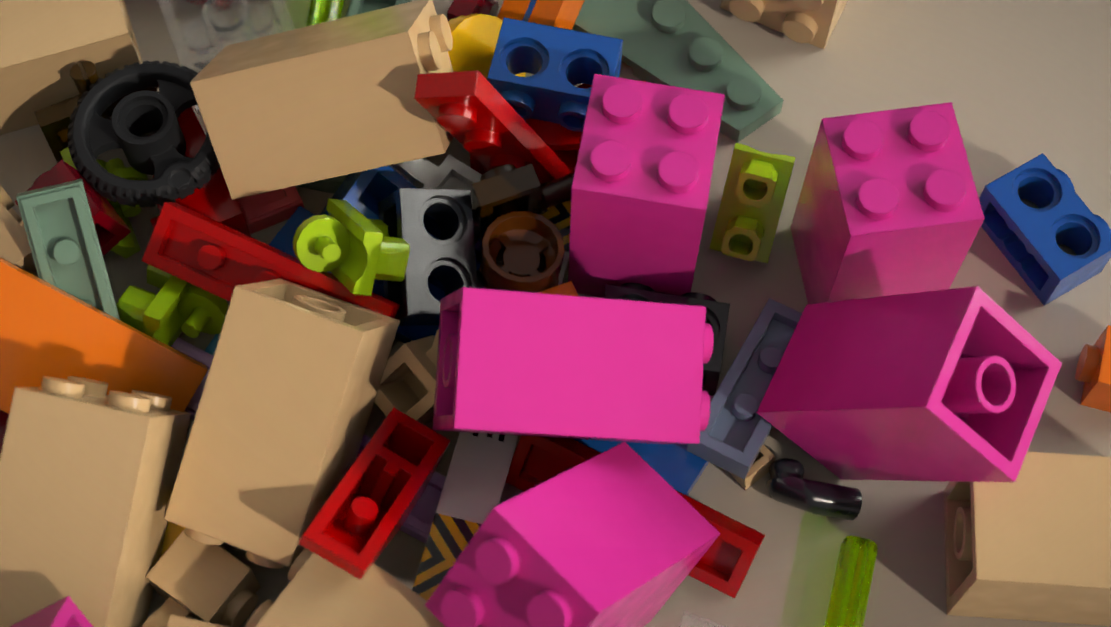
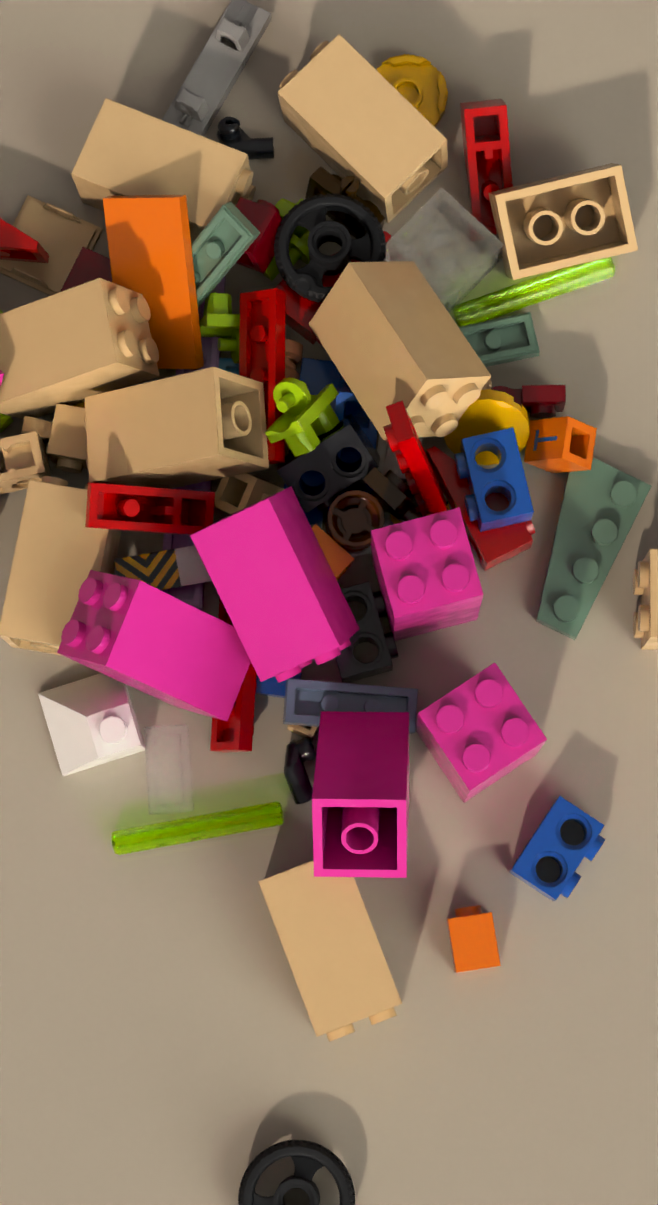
camera: 75 degrees right, 15 degrees up
(751, 203) = (473, 649): lime hips -> none

